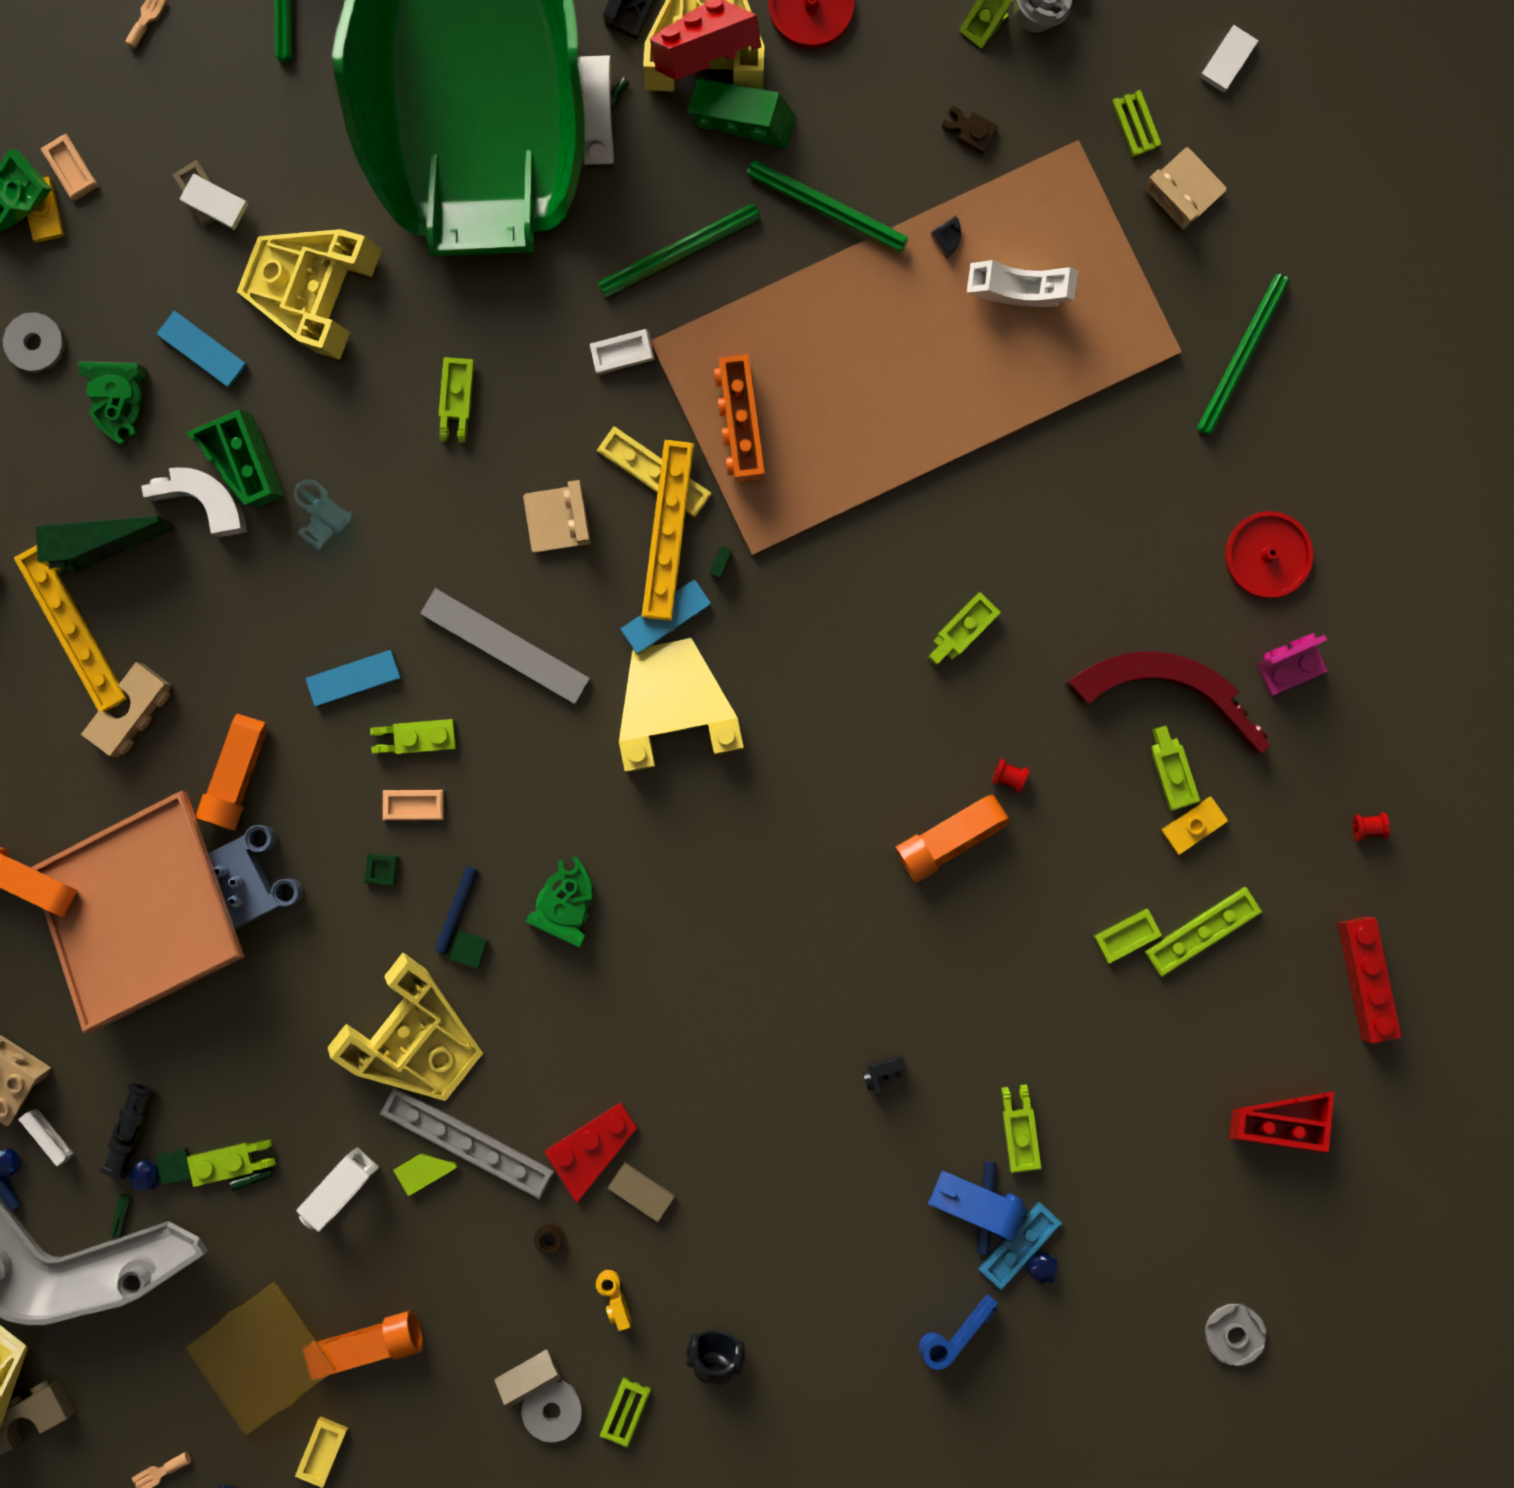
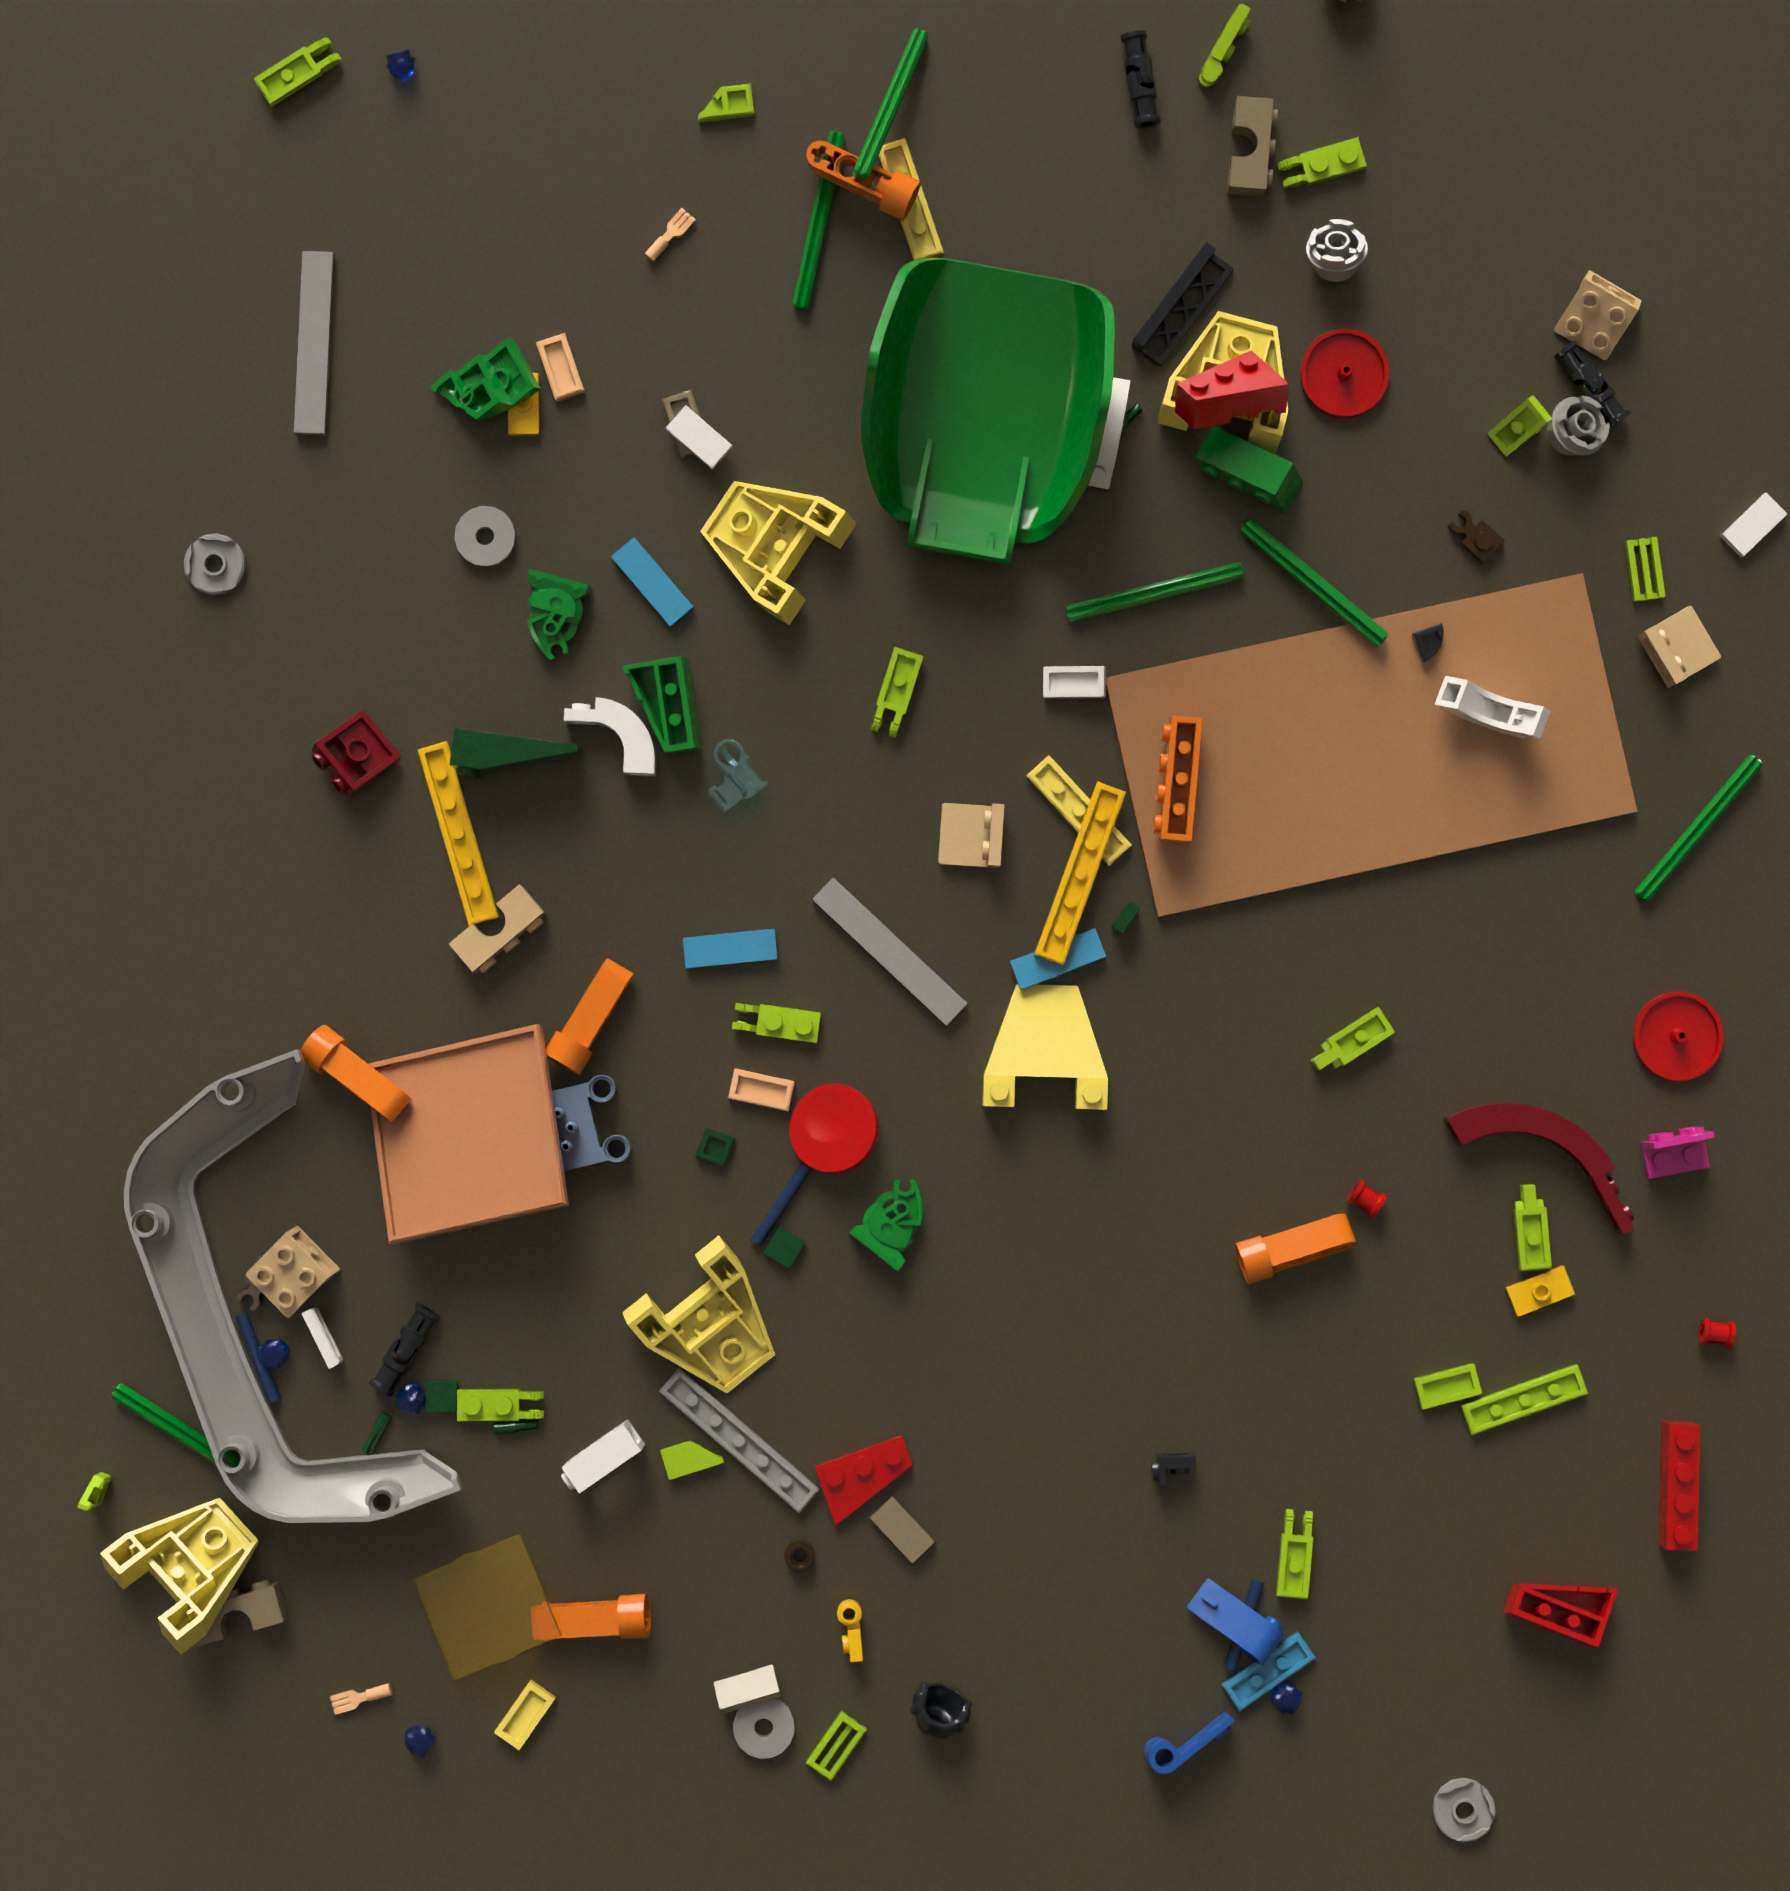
camera: 10 degrees right, 0 degrees up
(489, 826) = (834, 1128): none -> red piece

